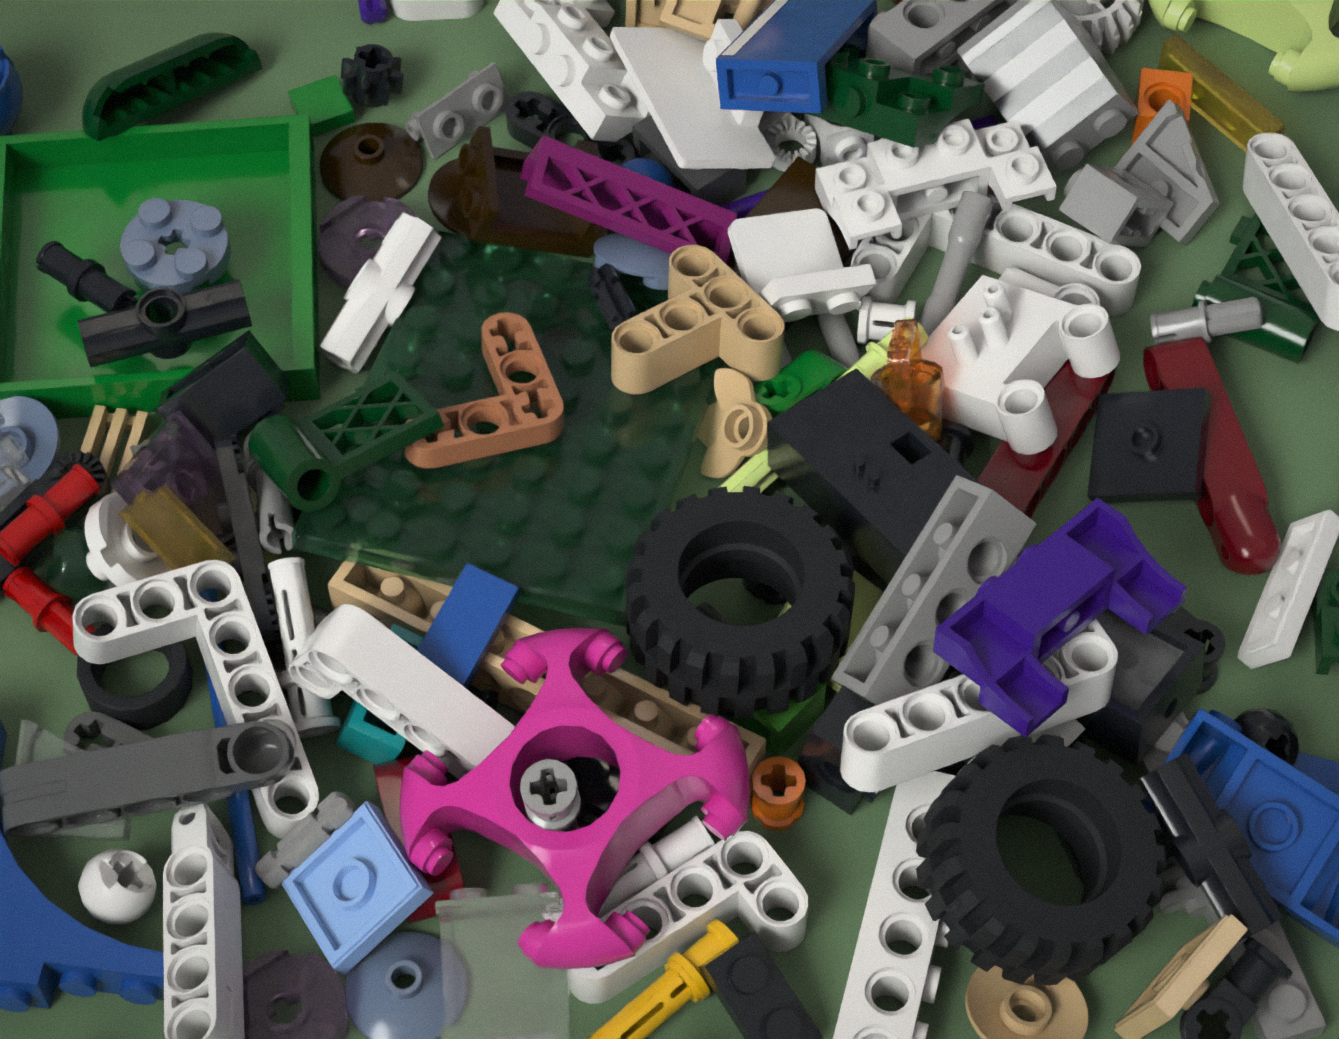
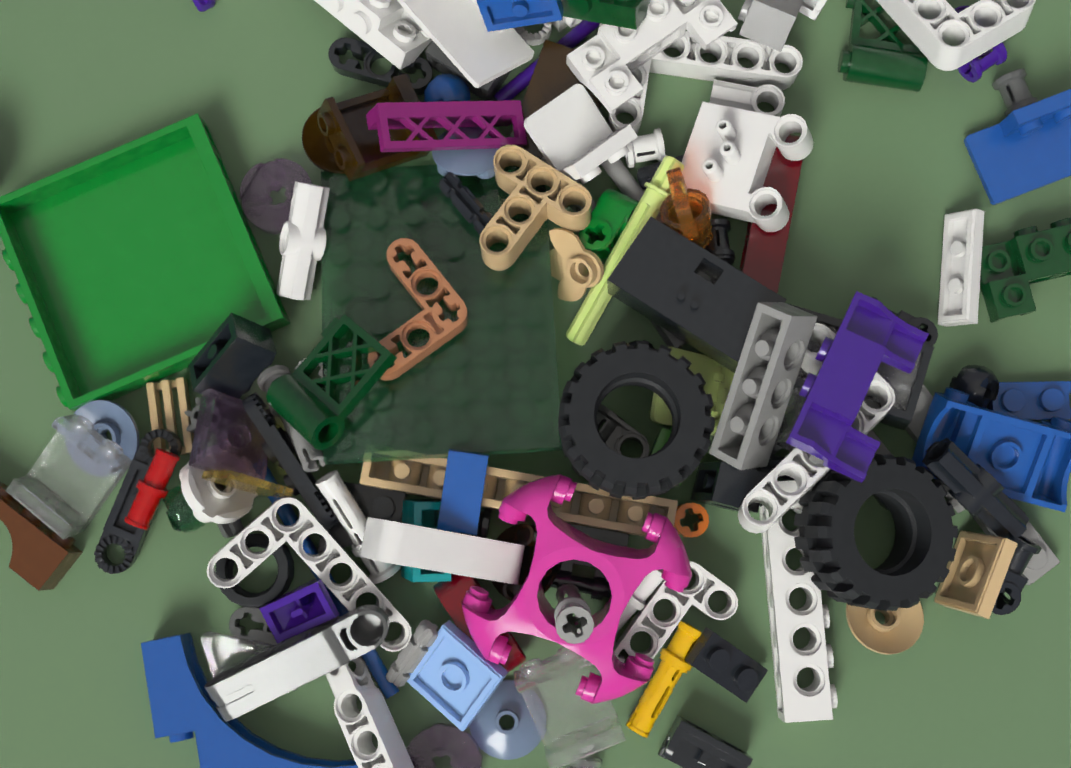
camera: 15 degrees left, 25 degrees up
(49, 609) = (180, 543): red axle -> none
(84, 279) = (101, 303): black pin -> none
(117, 886) = (297, 730): white piece -> none
(164, 323) = (150, 336): black piece -> none
(165, 82) = (85, 118): dark green brick -> none
(170, 222) = (133, 240): sand blue plate -> none
(175, 712) = (299, 610): none -> dark purple slope
(324, 104) = (200, 92): green tile -> none
(371, 162) = (258, 142): dark brown dish -> none
(372, 75) = (219, 53): black gear -> none
(460, 111) = (303, 57): light grey hinge -> none
(962, 241) = (680, 74): light grey piece -> none
(1150, 446) = (846, 194): black plate -> none
(1207, 320) = (856, 85): light grey axle -> none
(1232, 488) = (883, 180): dark red piece -> none

